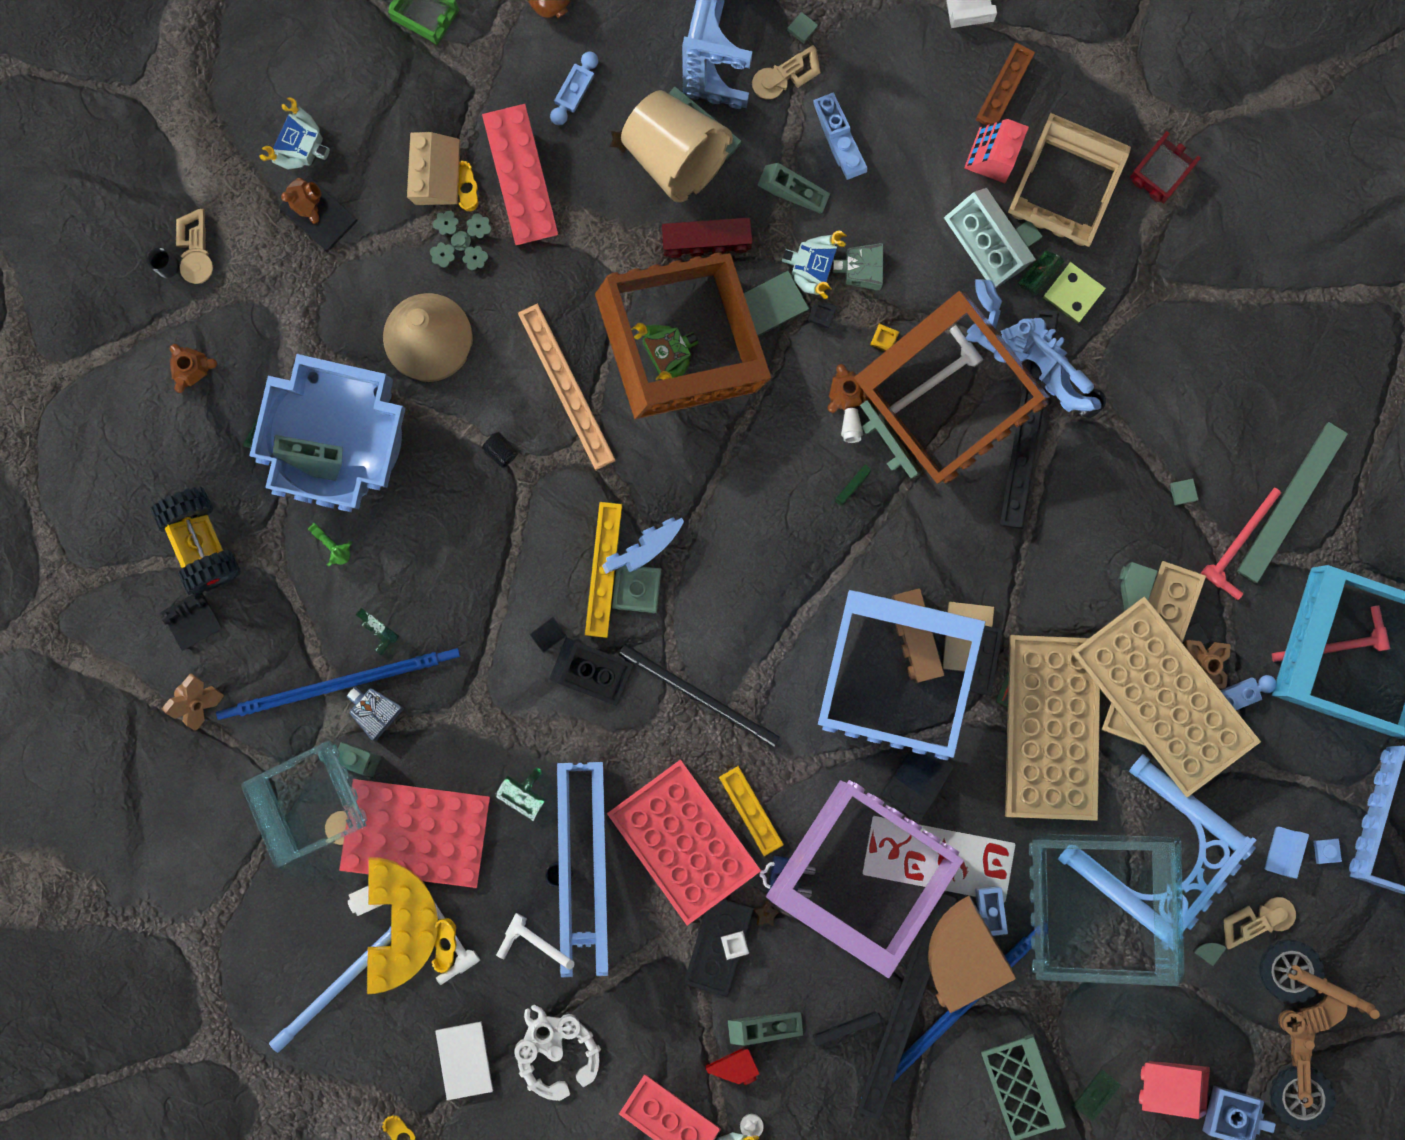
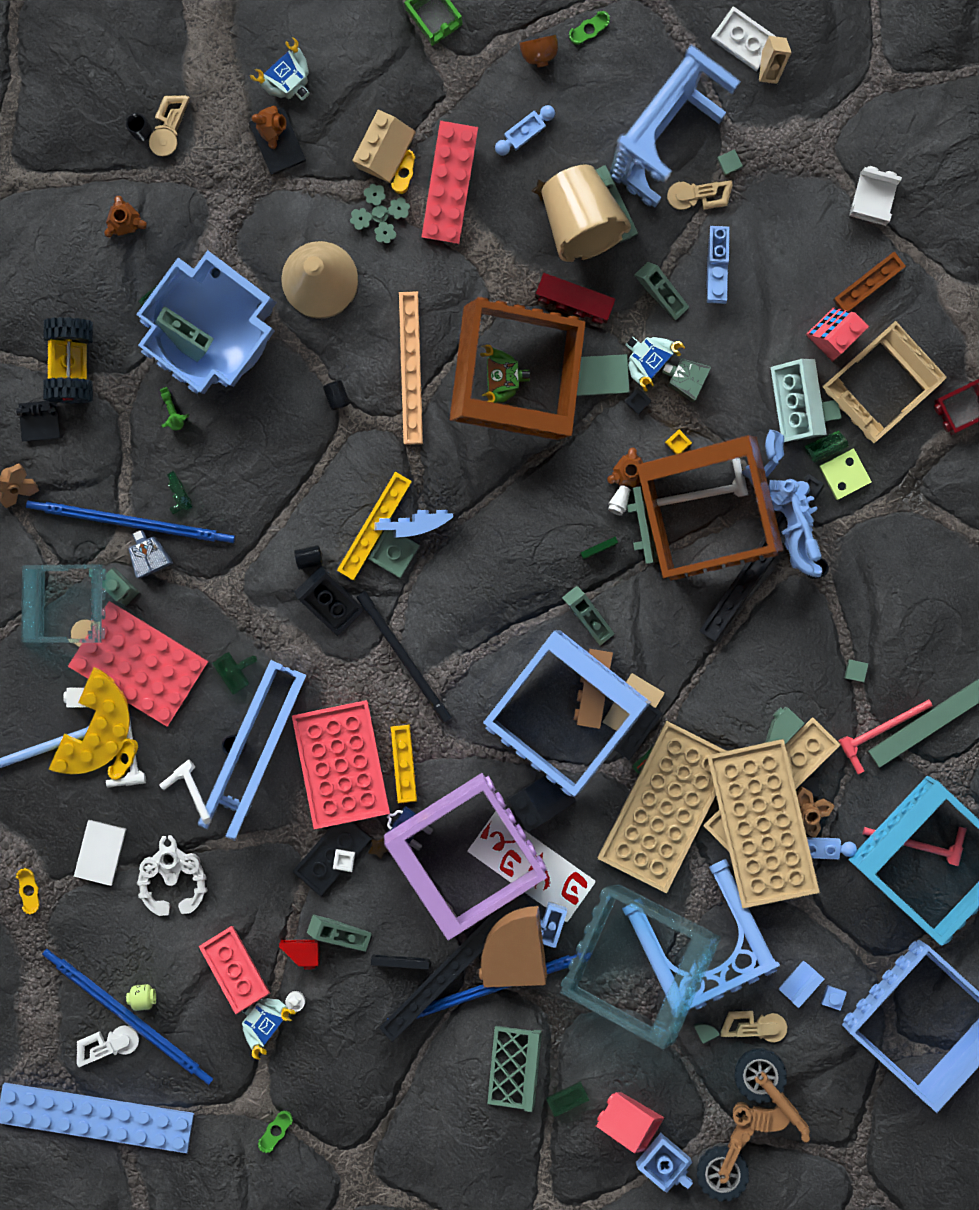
camera: 30 degrees right, 5 degrees up
(874, 561) = (588, 615): none -> sand green slope

